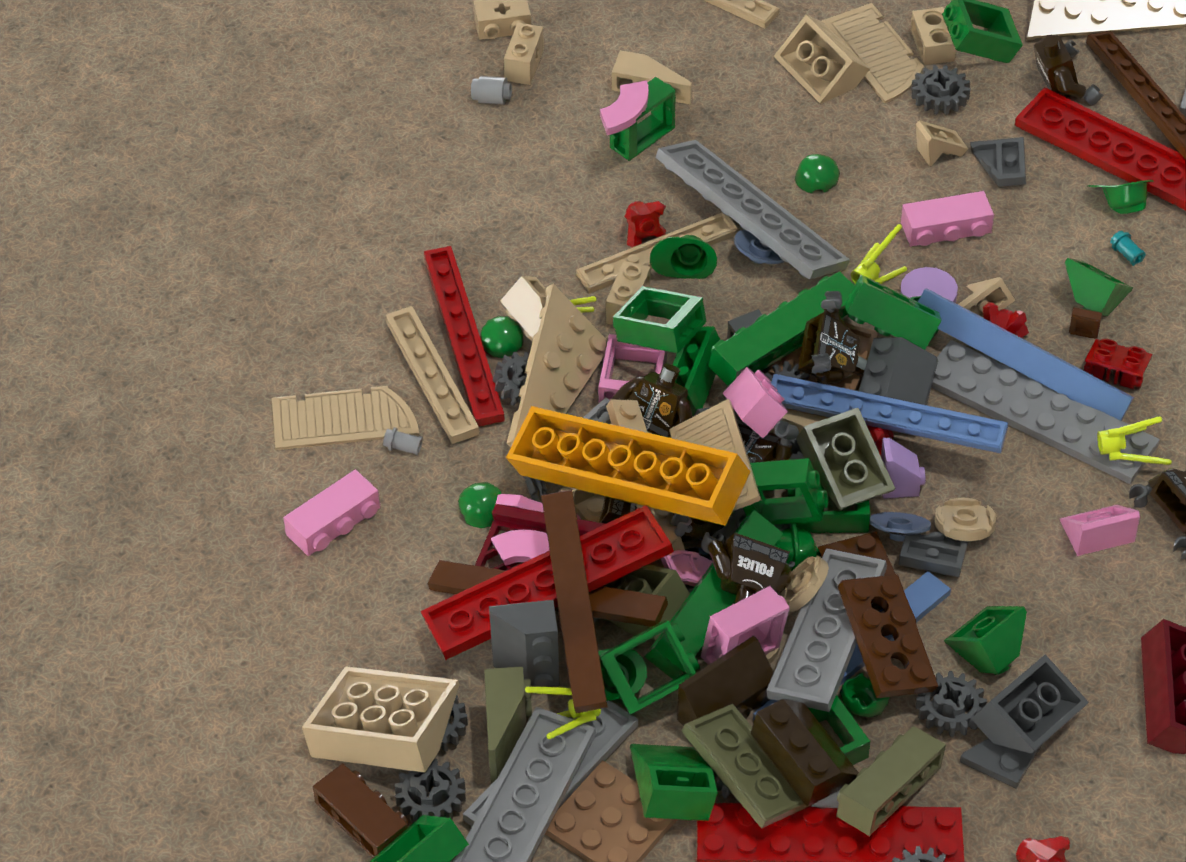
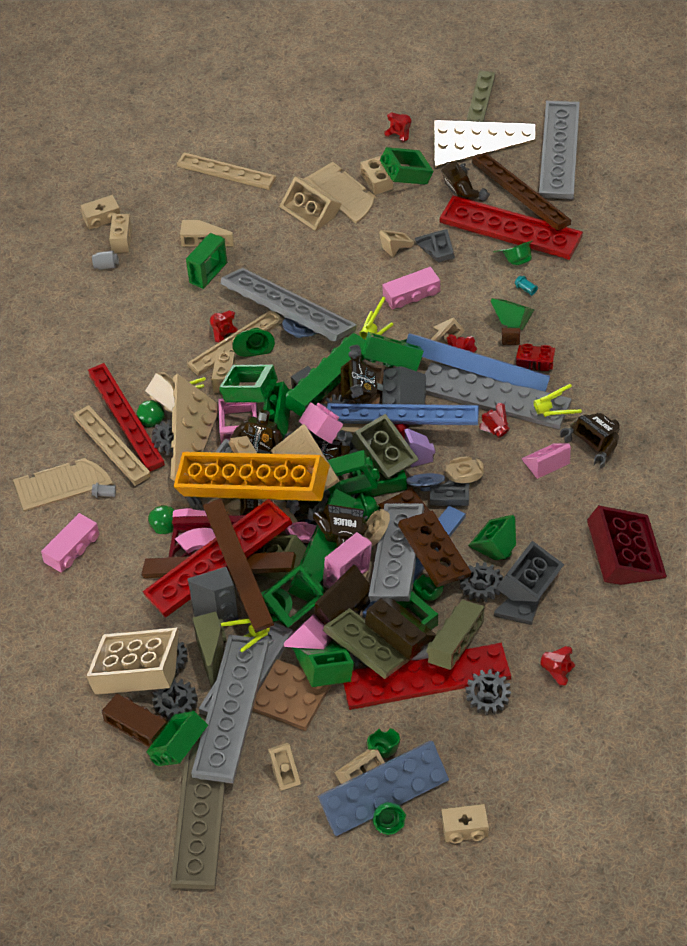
camera: 10 degrees left, 0 degrees up
(627, 108) = (195, 258): bright pink tile -> none
(660, 734) = (309, 635): none -> bright pink slope
(817, 172) = (323, 274): green hair -> none
(932, 279) = (405, 327): lavender tile -> none
(940, 89) = (388, 208): dark grey gear -> none
(1031, 452) = (495, 421): none -> red rock

